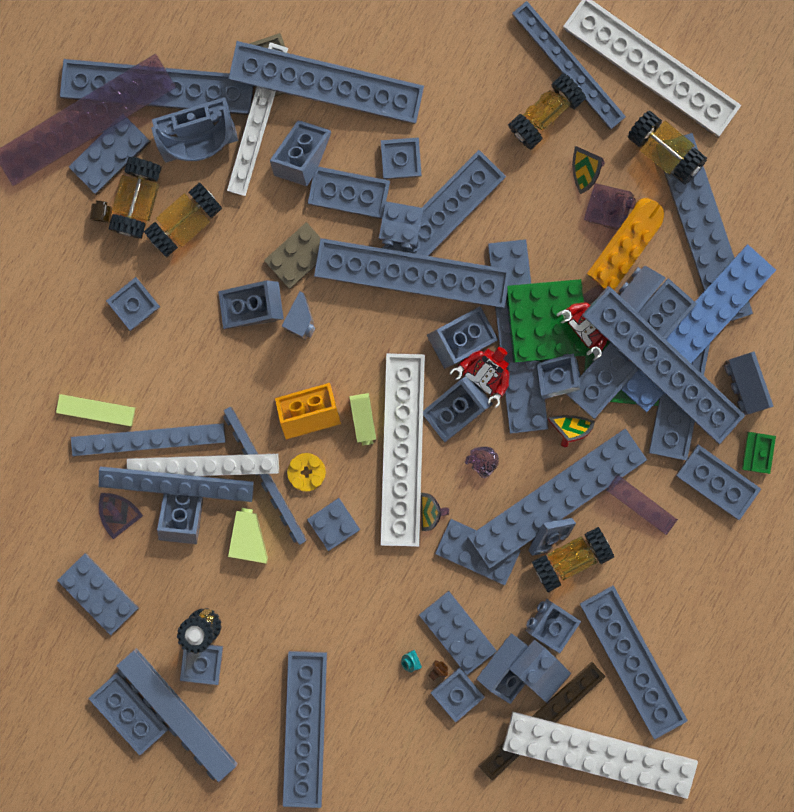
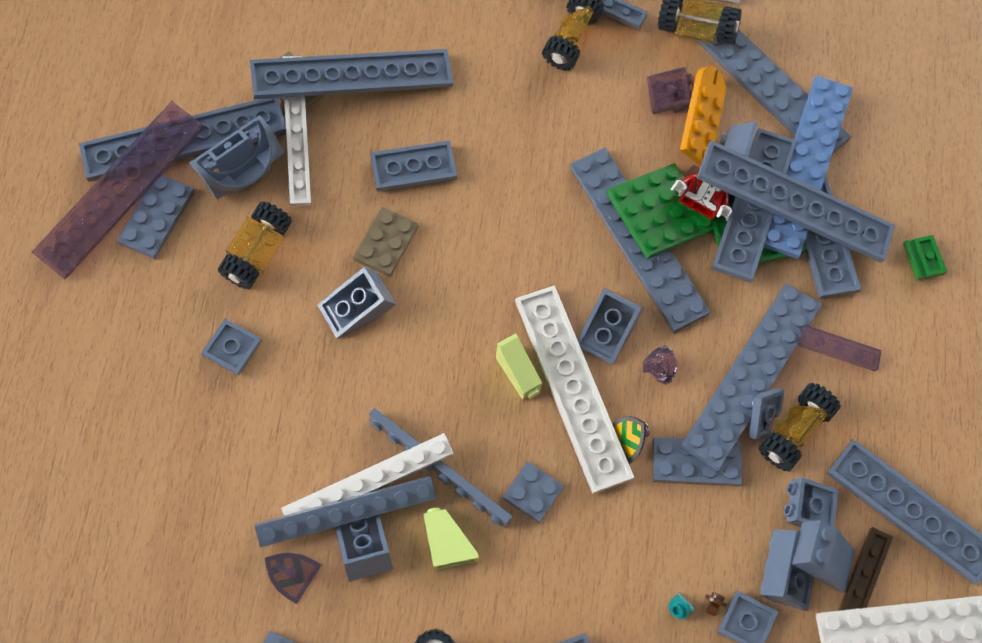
camera: 30 degrees left, 20 degrees down
(95, 410) = (228, 471): yellowish green tile -> none
(101, 212) = (165, 269): dark brown plate -> none
(135, 197) = (197, 242): plate -> none
(148, 439) = (296, 480): sand blue plate -> none
(299, 319) = (414, 291): sand blue slope -> none
(300, 153) = (351, 146): sand blue slope -> none
(307, 411) = (458, 385): light orange slope -> none
(313, 463) = (483, 436): yellow plate -> none
(400, 225) = (478, 173): sand blue plate -> none
(401, 158) = (452, 118): sand blue plate -> none
(412, 273) = (508, 212): sand blue plate -> none
(454, 203) = (511, 159): sand blue plate -> none
(457, 632) = (716, 555): sand blue plate -> none
(462, 337) = (583, 257): sand blue slope -> none
(487, 371) = (624, 276): torso -> none
(558, 376) = (698, 252): sand blue plate -> none
(571, 427) = (734, 300): shield -> none
(586, 168) = (632, 65): shield -> none
(718, 482) = (901, 299): sand blue plate -> none
(748, 383) = (883, 193): sand blue slope -> none

